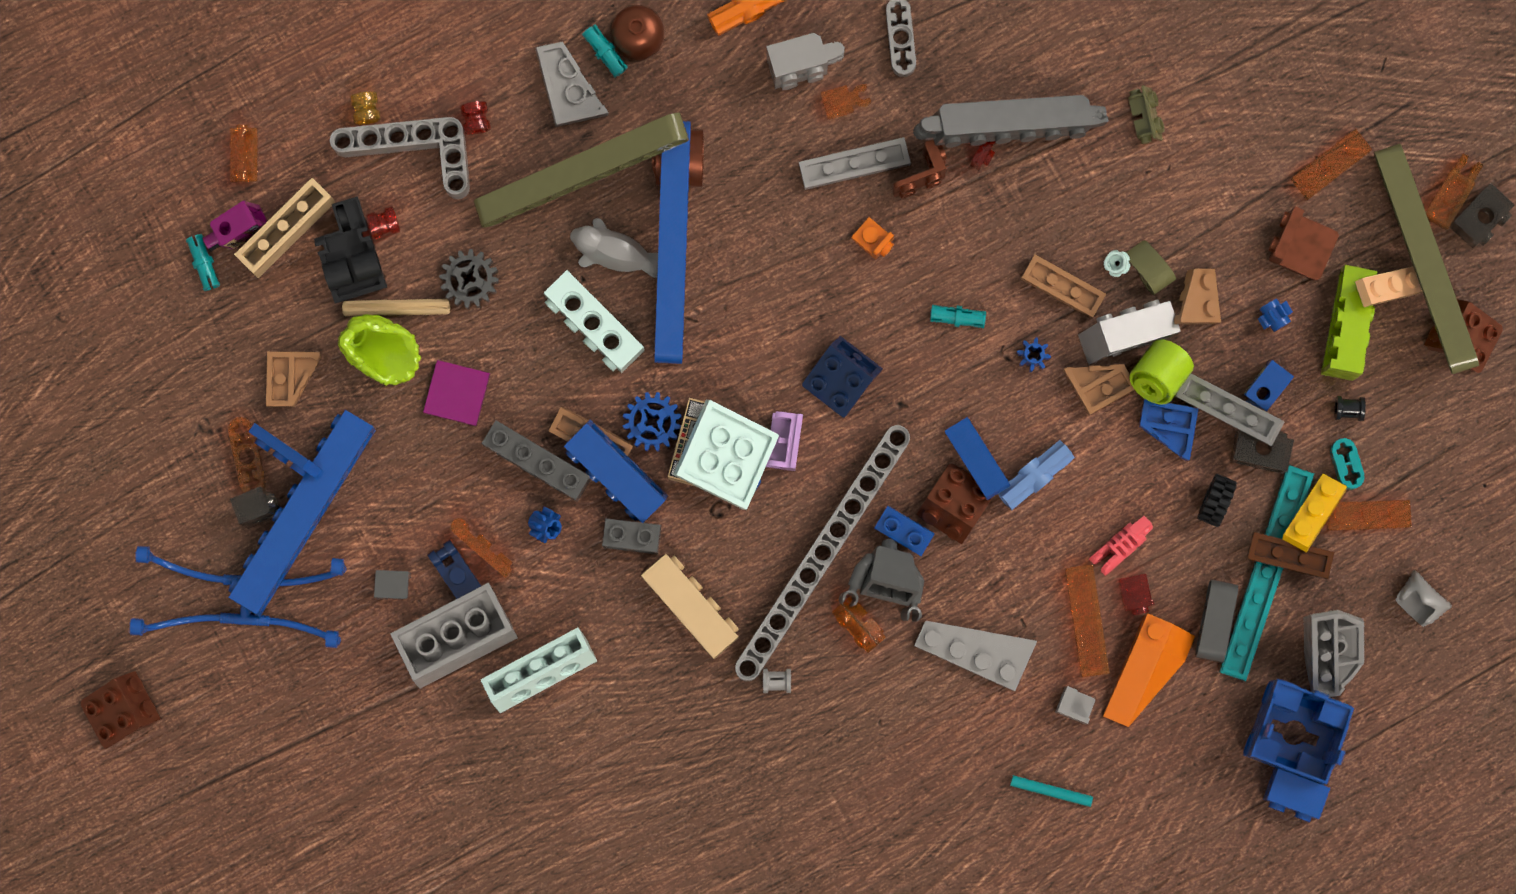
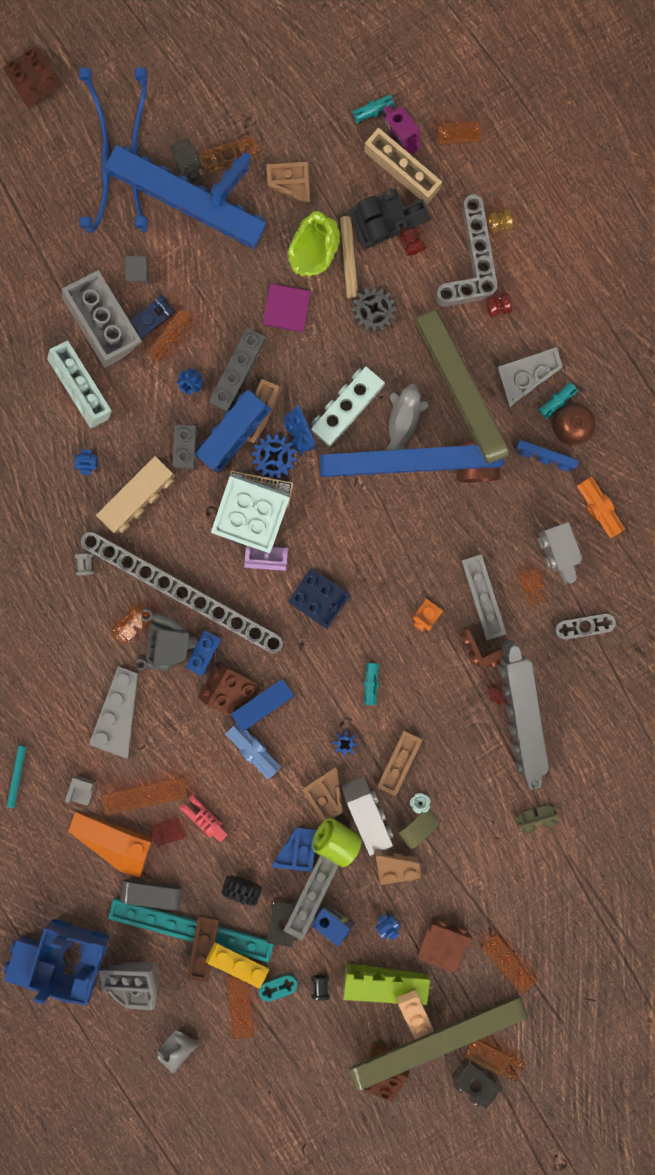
camera: 85 degrees right, 5 degrees up
(621, 385) = (300, 433): none -> blue hinge
(641, 668) = (86, 462): none -> blue gear
(676, 71) = (546, 456): none -> blue plate

